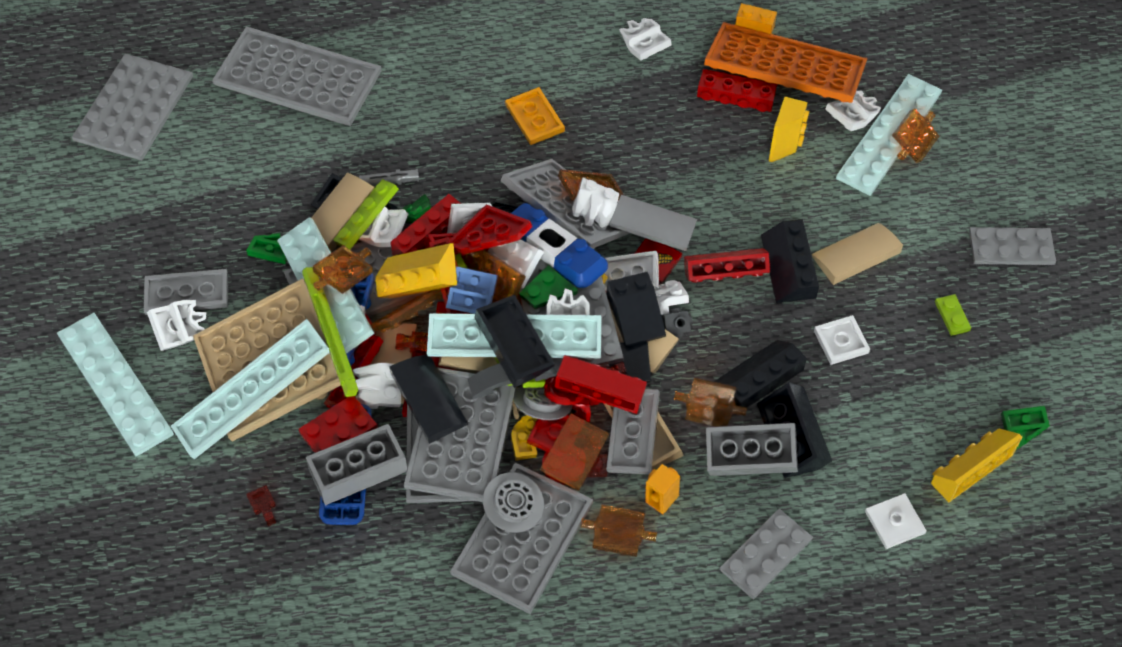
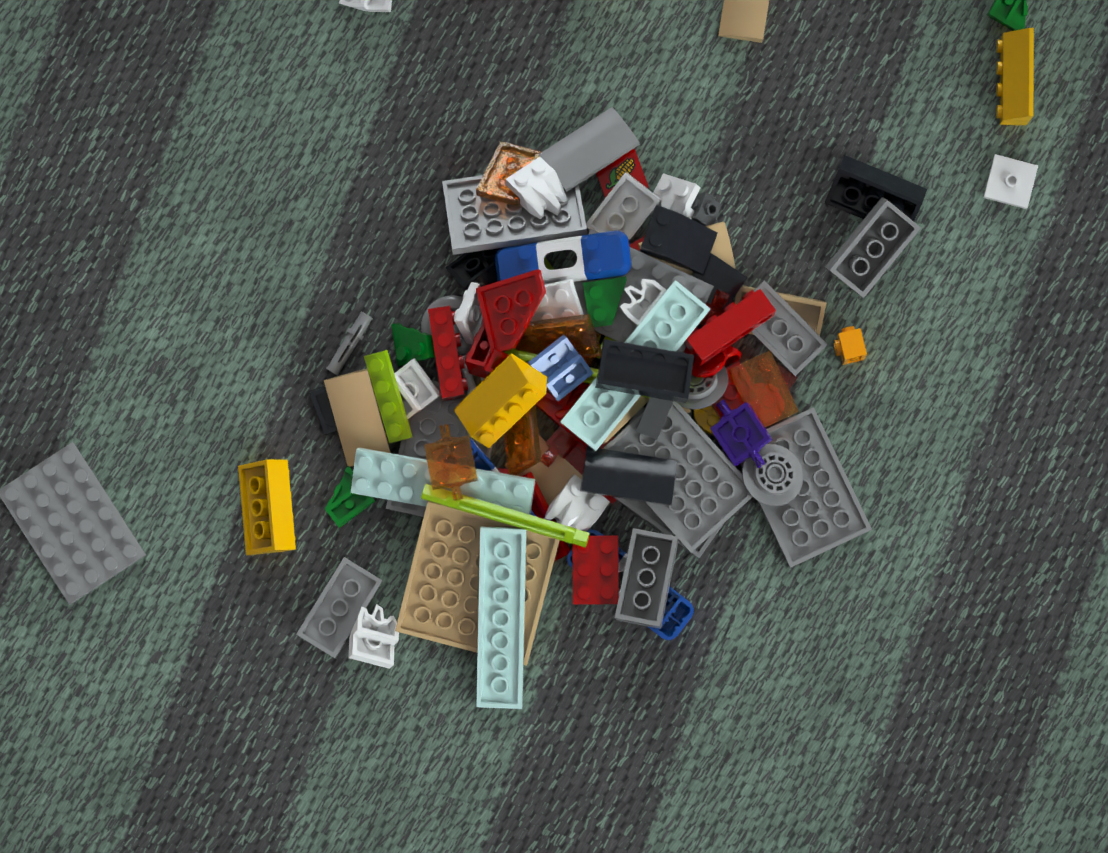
camera: 55 degrees left, 25 degrees up
(115, 384) = (390, 728): light aqua plate -> none
(230, 203) = (266, 507): none -> yellow slope
(262, 502) = (608, 677): clear red plate -> none
(297, 76) = (155, 345): light grey plate -> none
(526, 454) = (741, 433): none -> dark purple plate
(534, 116) = (380, 159): light orange plate -> none
(618, 530) = (854, 406): clear orange plate -> none
(710, 403) = (803, 244): clear orange plate -> none
(726, 264) = (678, 120): red brick -> none
(764, 372) = (801, 178): black slope -> none
(766, 553) = (960, 306): light grey plate -> none
(790, 262) = (715, 62): black slope -> none
(841, 340) = (822, 83): white plate -> none

